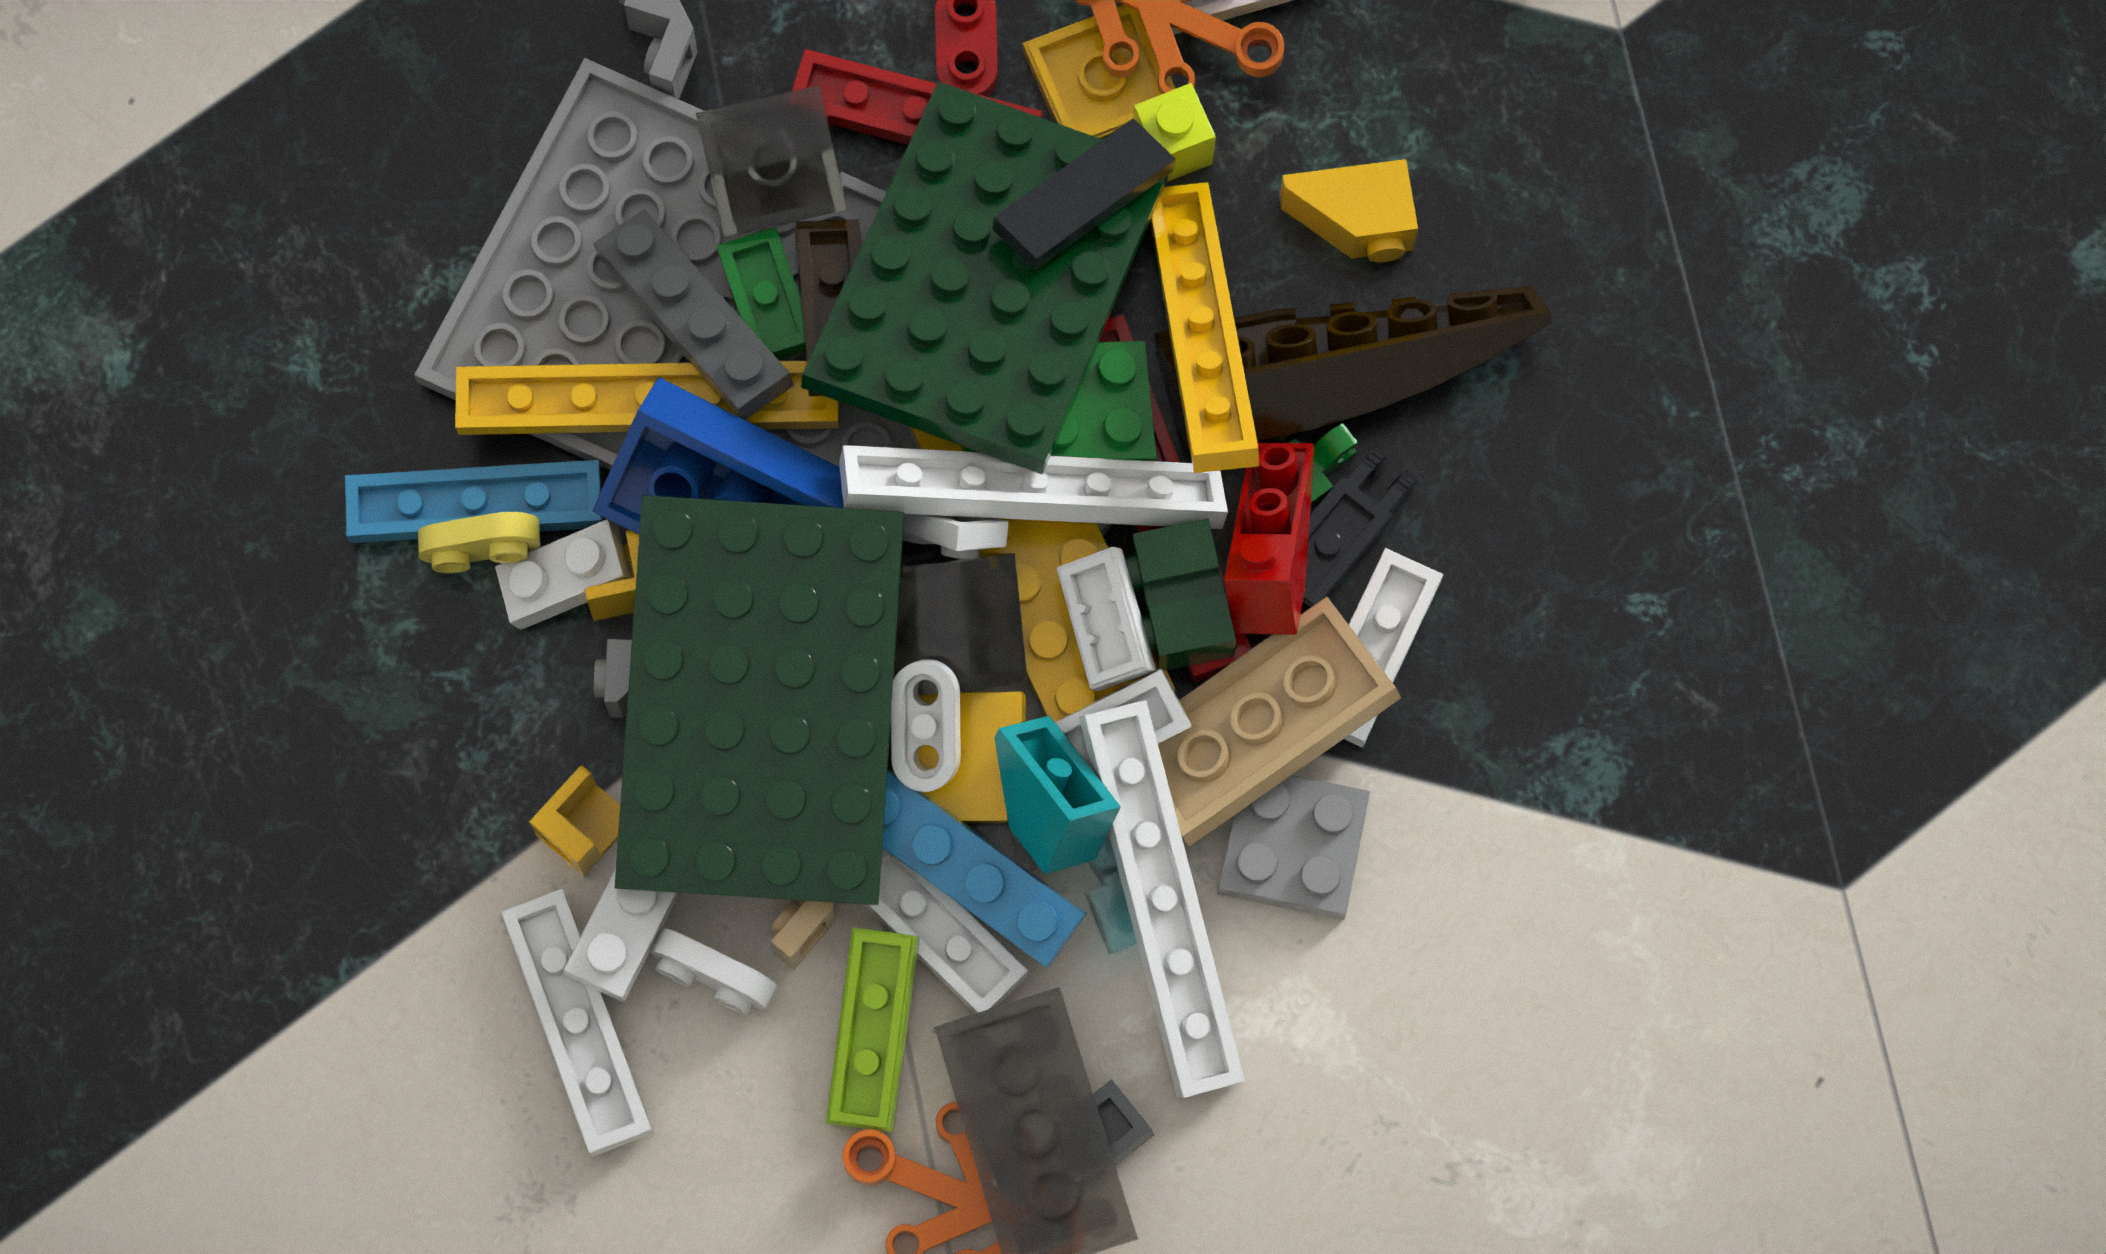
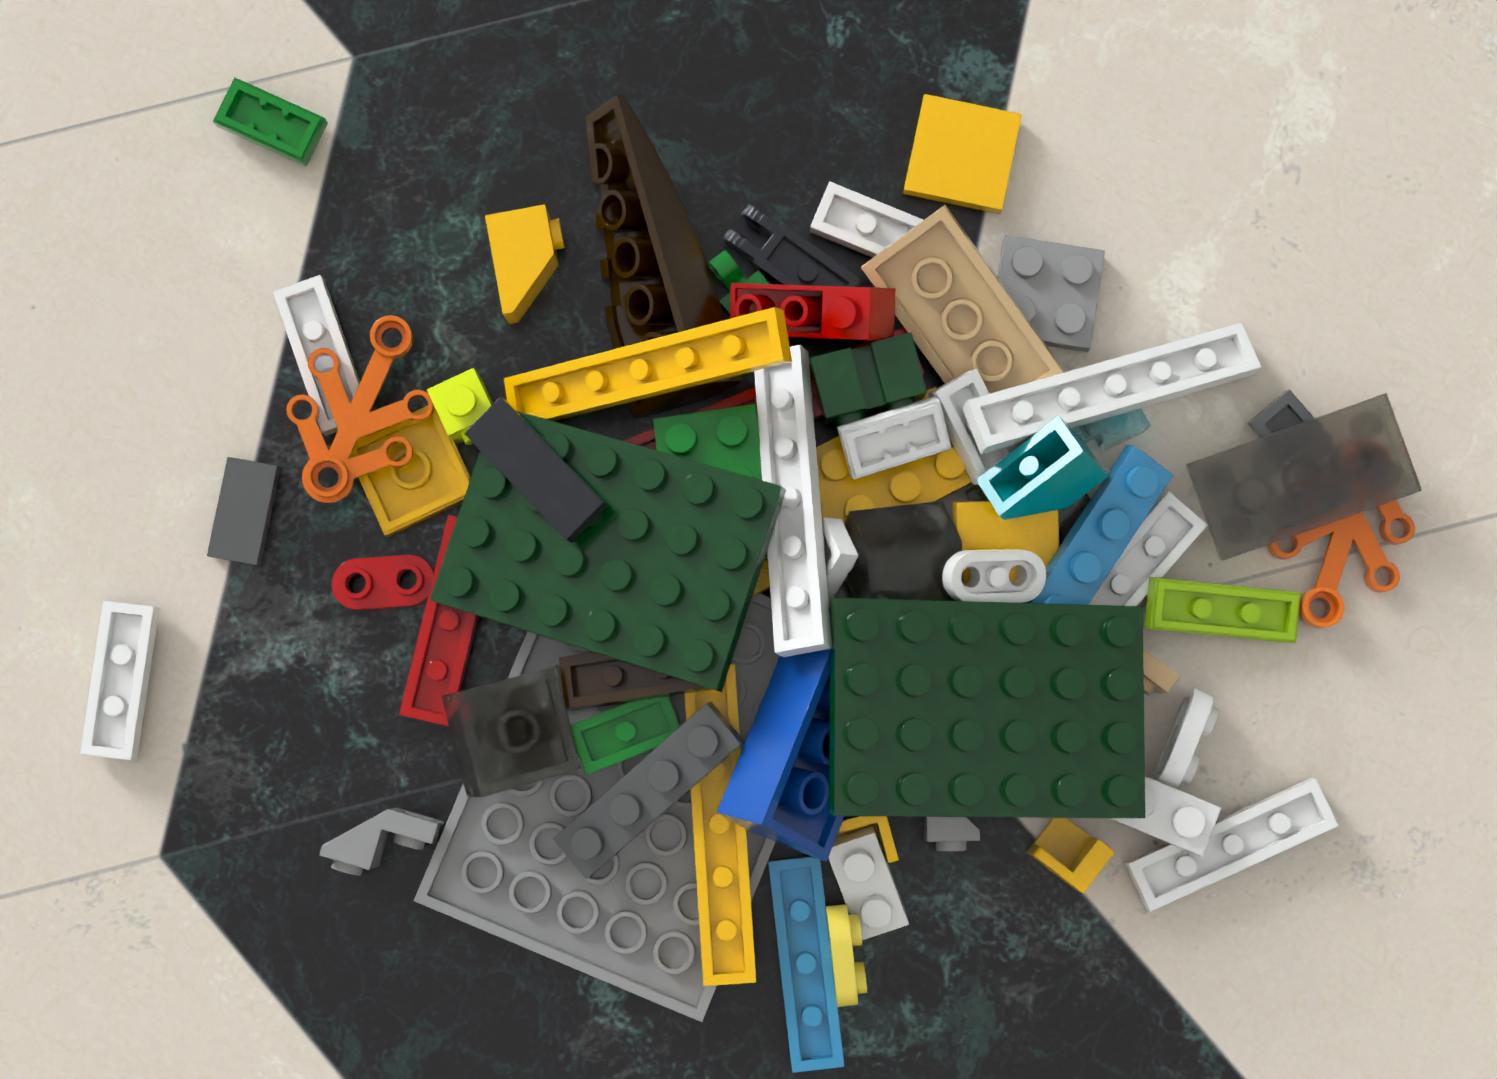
camera: 90 degrees left, 10 degrees up
(1479, 747) = (962, 154): none -> yellow tile

